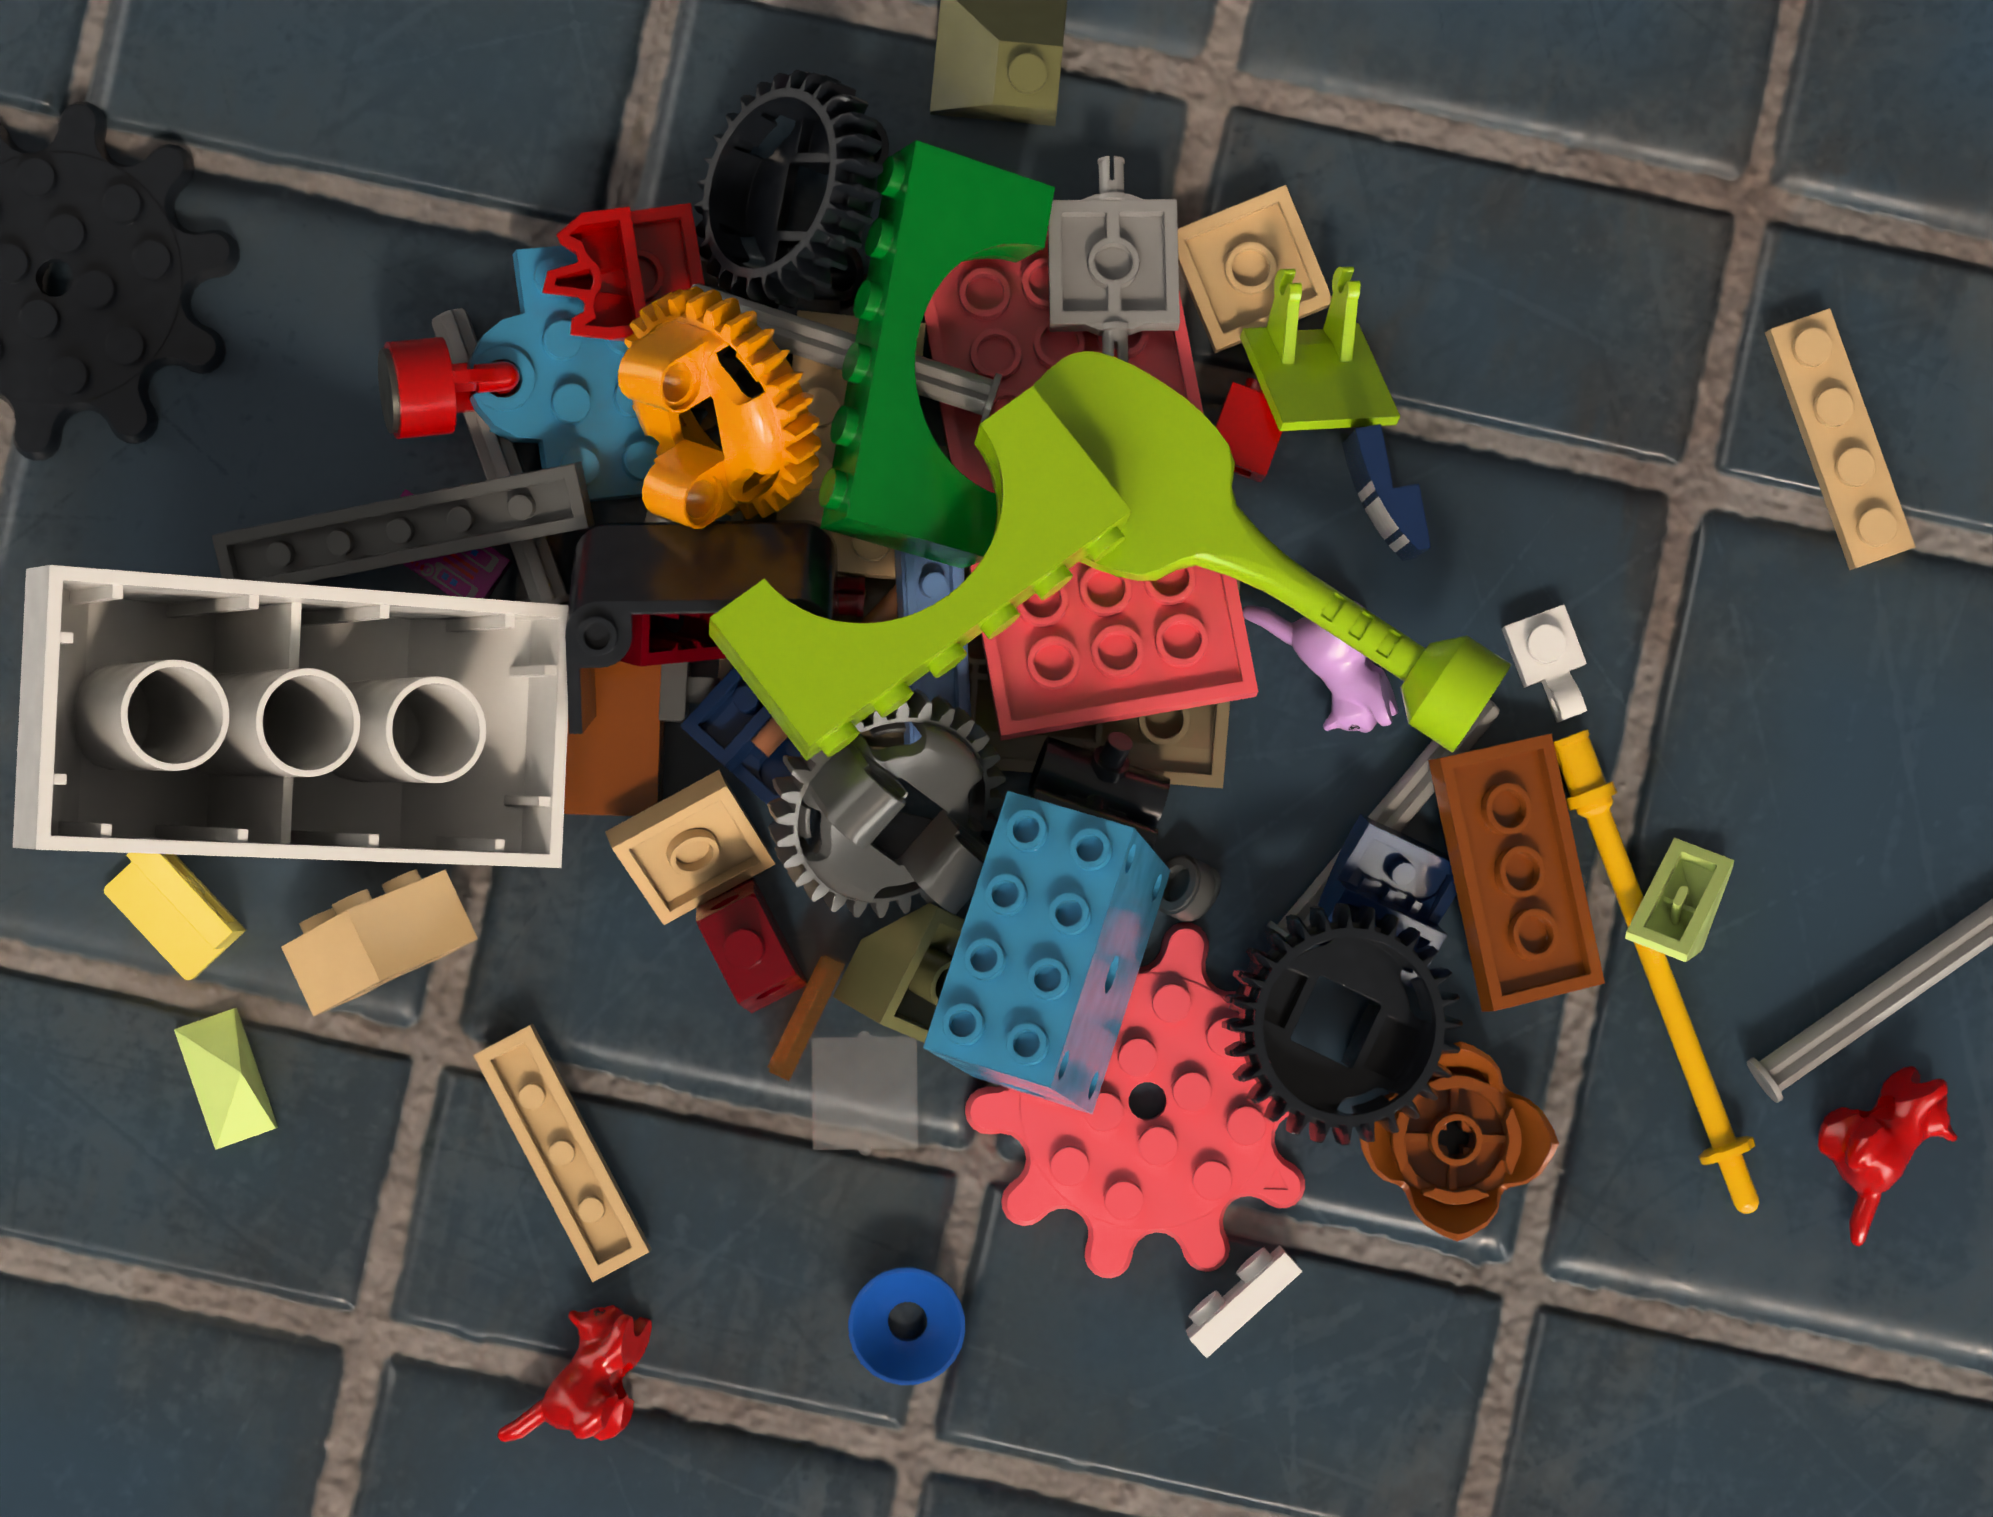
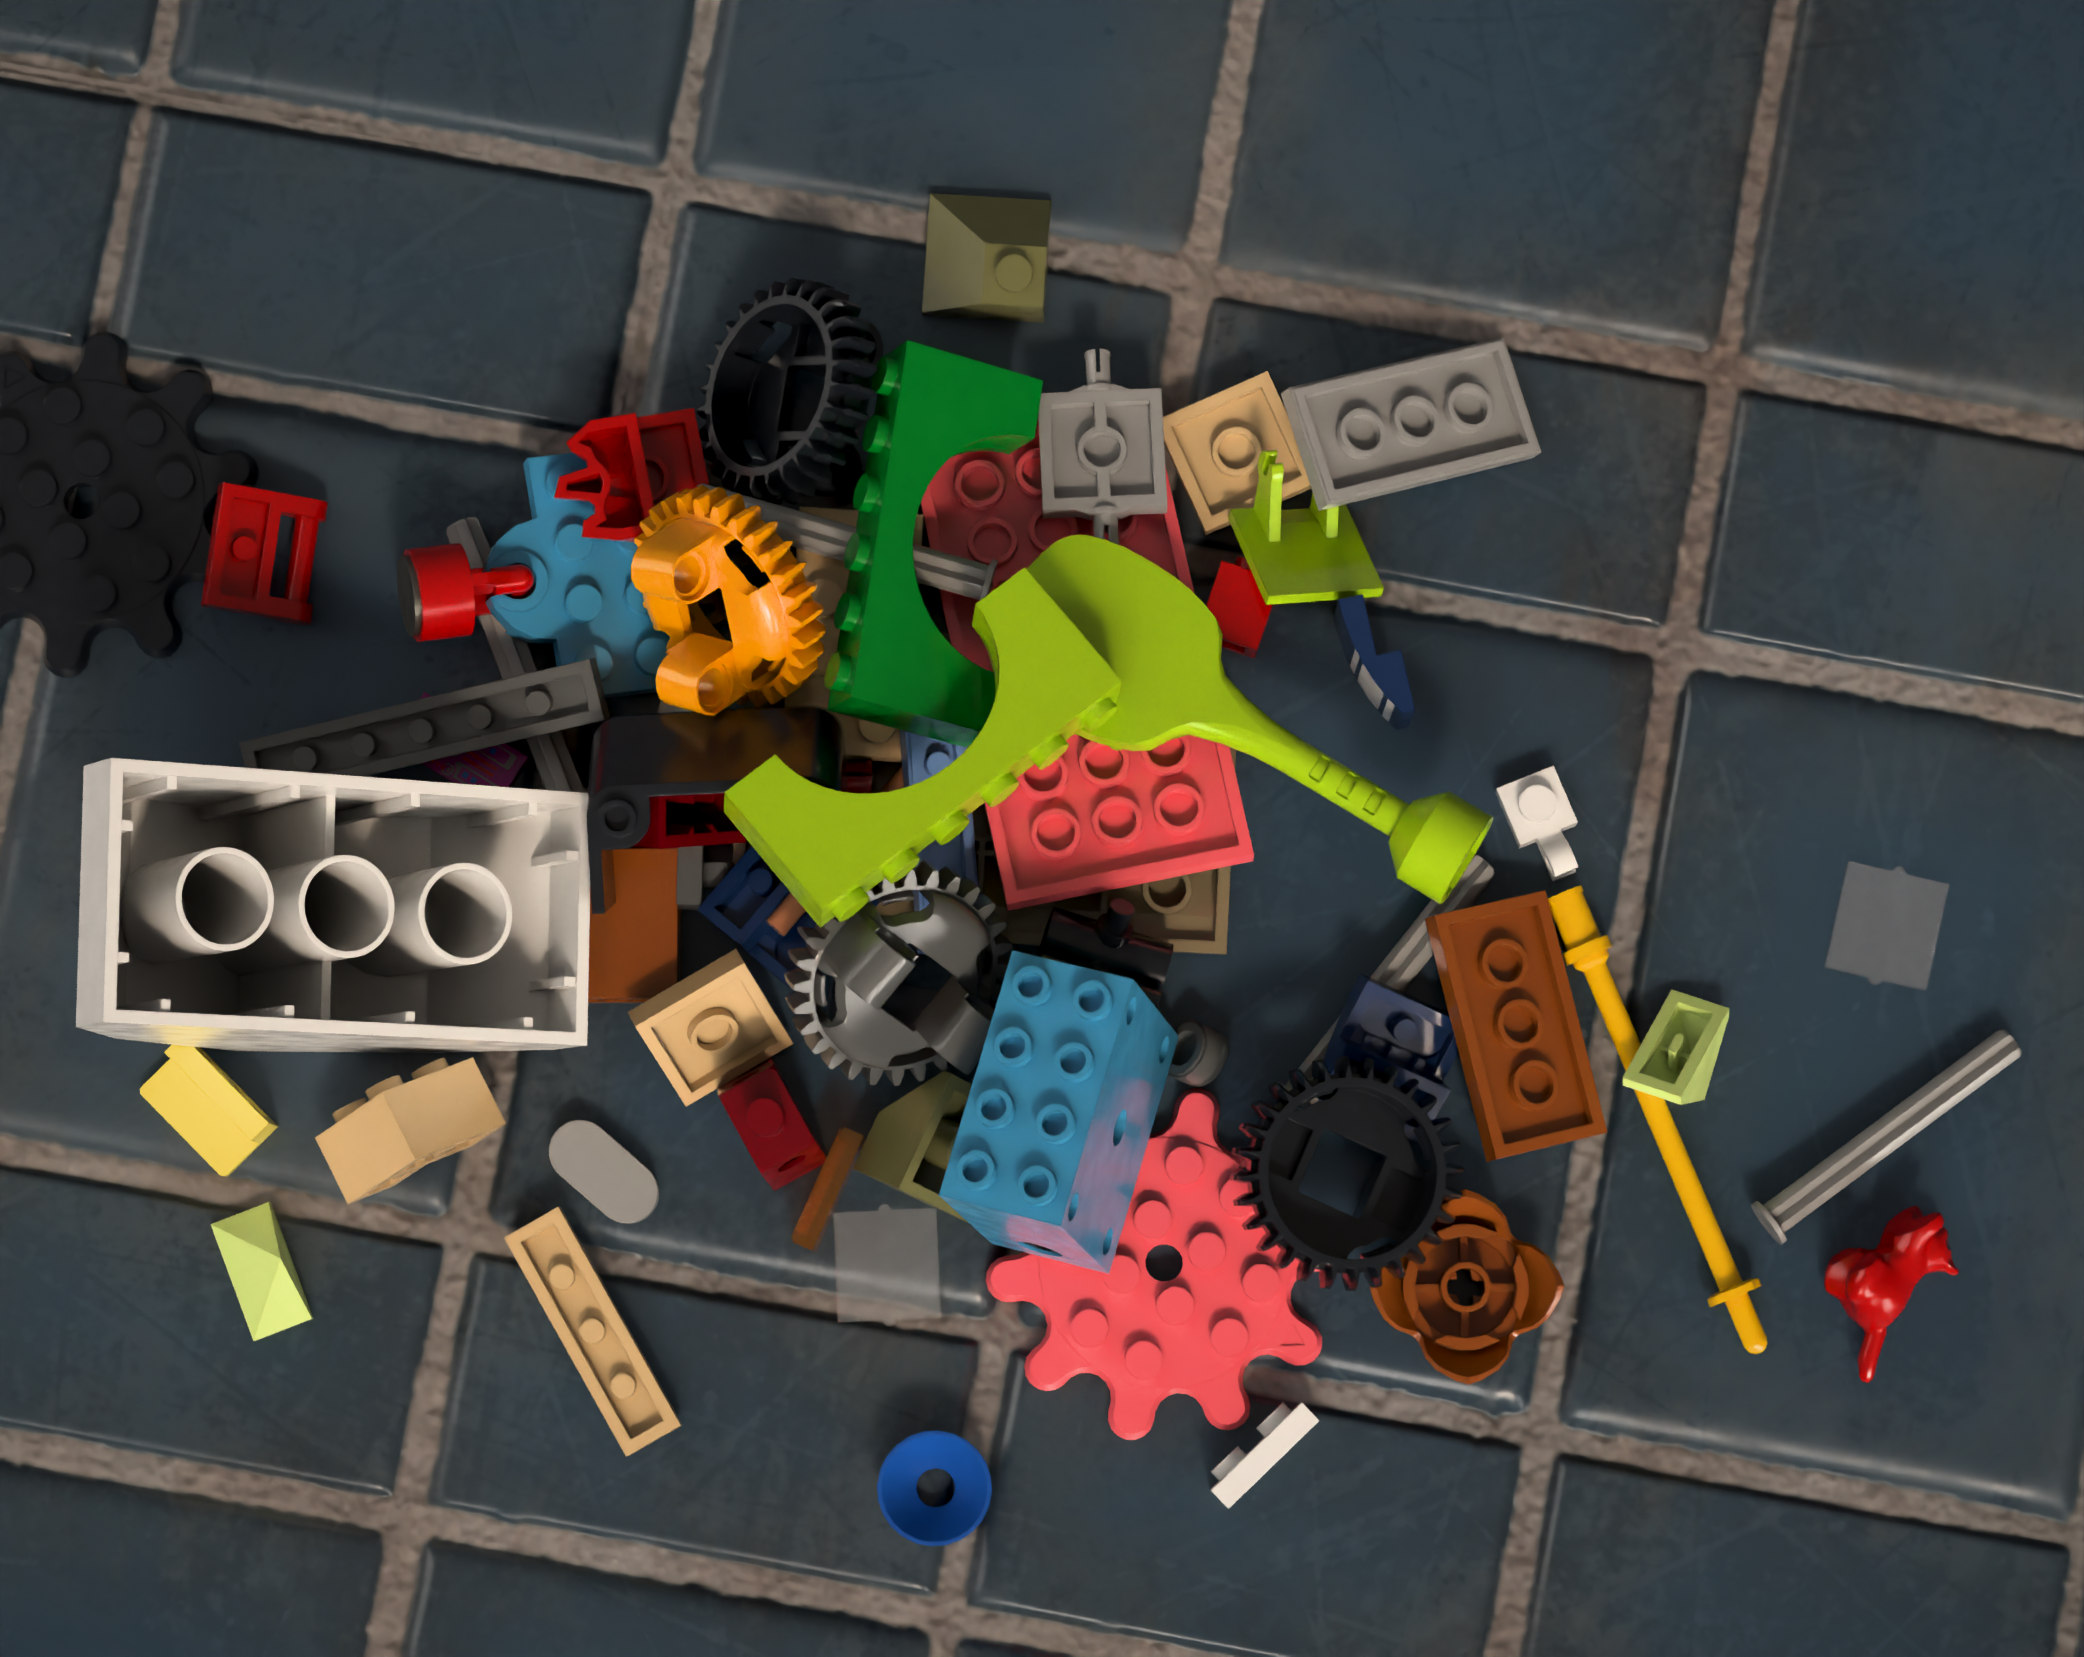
camera: 10 degrees right, 5 degrees down
(222, 334) = (245, 550): none -> red plate
(578, 989) = (604, 1171): none -> light grey tile
(590, 1390) = (626, 1562): red animal -> none
(1357, 686) = (1354, 851): lavender animal -> none
(1432, 245) = (1410, 423): none -> light grey tile
(1839, 439) = (1817, 597): tan plate -> none
(1895, 779) = (1886, 926): none -> clear piece

